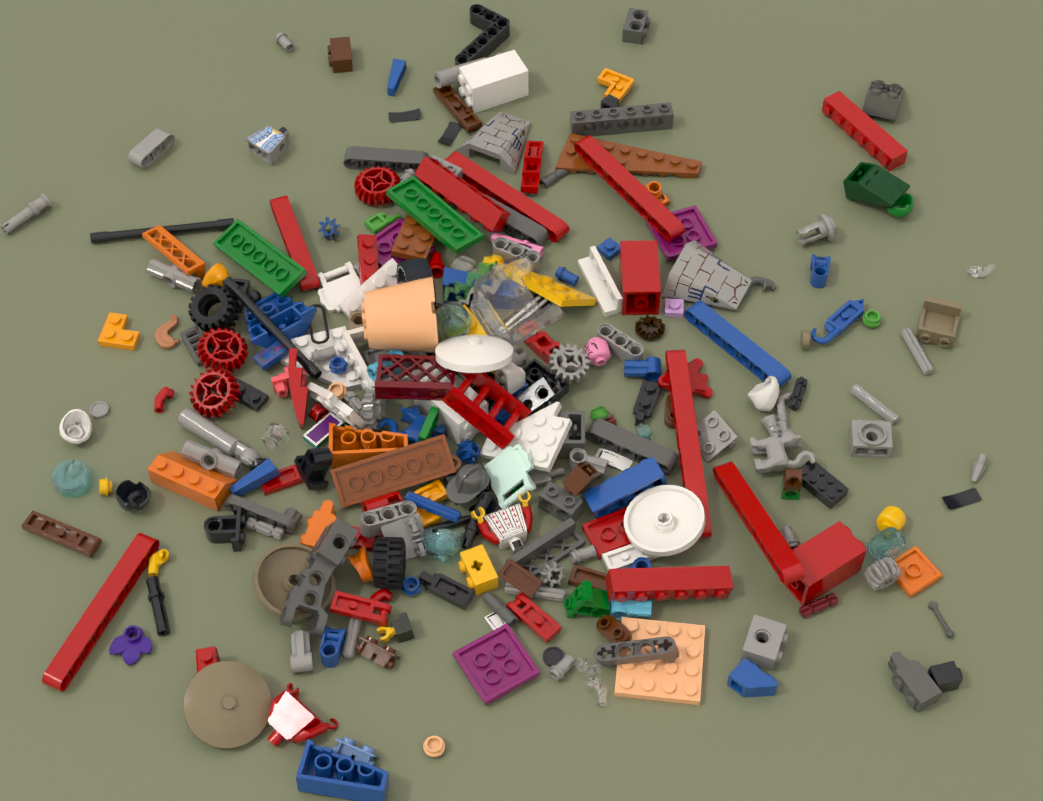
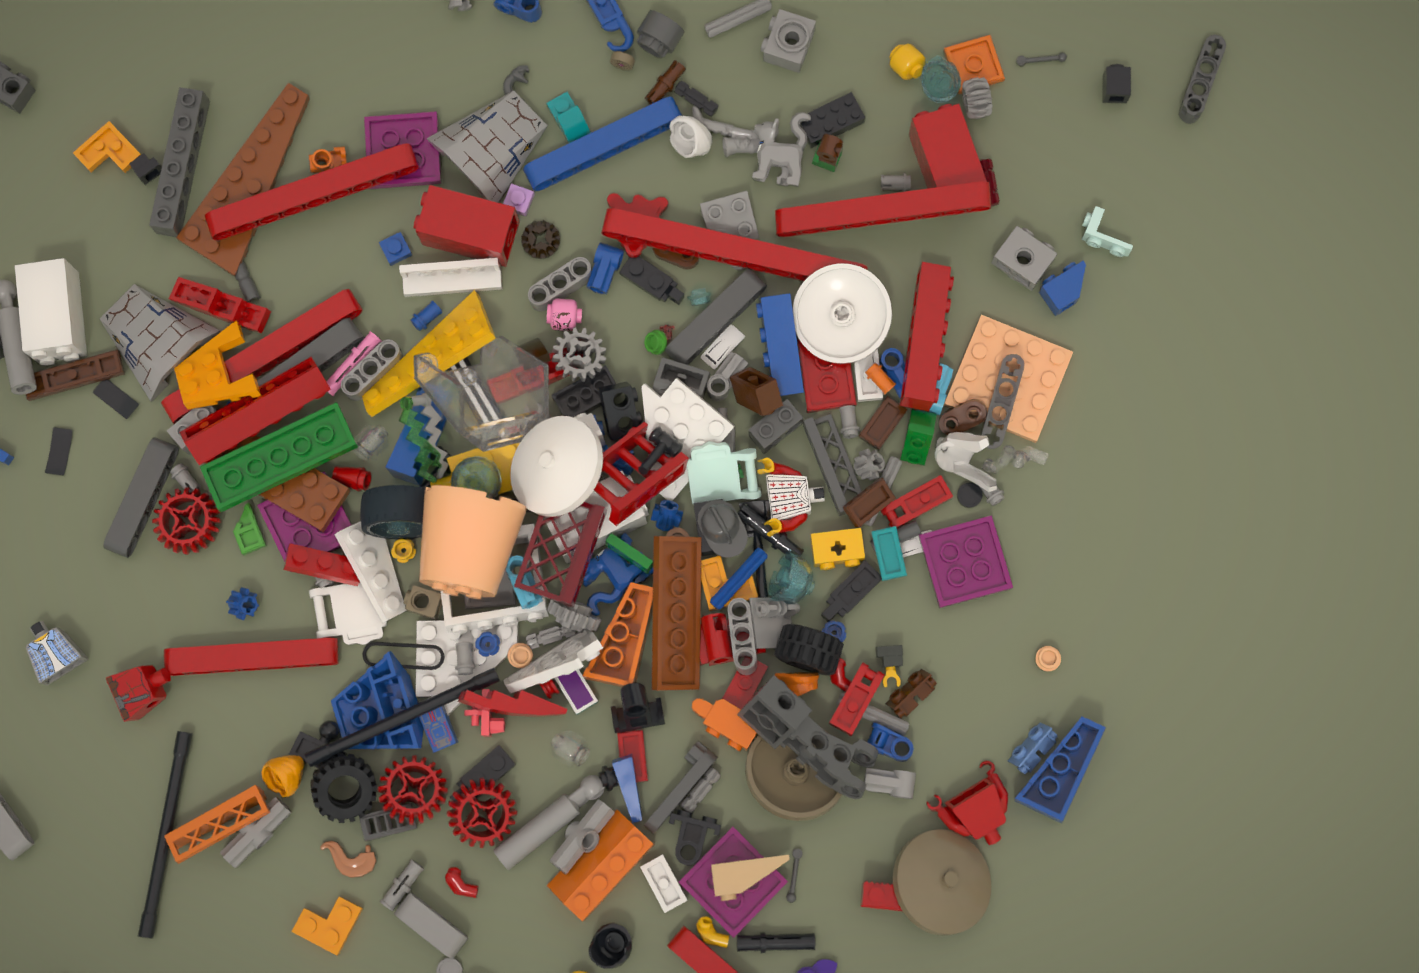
camera: 70 degrees left, 25 degrees up
(128, 388) = (431, 925): none -> light grey beam
(154, 364) = (412, 870): none -> light grey pin
(188, 521) = (663, 883): none -> white plate
(199, 565) = (735, 913): none -> magenta plate
(202, 563) = (740, 875): none -> tan slope
(230, 606) = (797, 854): none -> dark grey hinge
(253, 189) = (138, 690): none -> red torso
(260, 258) = (269, 709): green plate -> none
(478, 164) = (204, 376): none -> light orange wing
(484, 603) = (889, 553): none -> teal tile
(519, 425) = (664, 443): none -> black piece
(558, 336) = (537, 349): none -> dark brown slope
(581, 632) = (955, 453): none -> white piece
(624, 559) = (880, 378): none -> orange pin
(748, 319) = (568, 117): none -> teal slope
(801, 371) = (665, 82): none -> reddish brown pin
(810, 688) = (1098, 239): none -> light aqua bracket
(834, 354) = (659, 34): none -> dark grey piece
(913, 682) = (1114, 119): dark grey hinge -> none
(956, 739) = (1202, 79): none -> dark grey beam

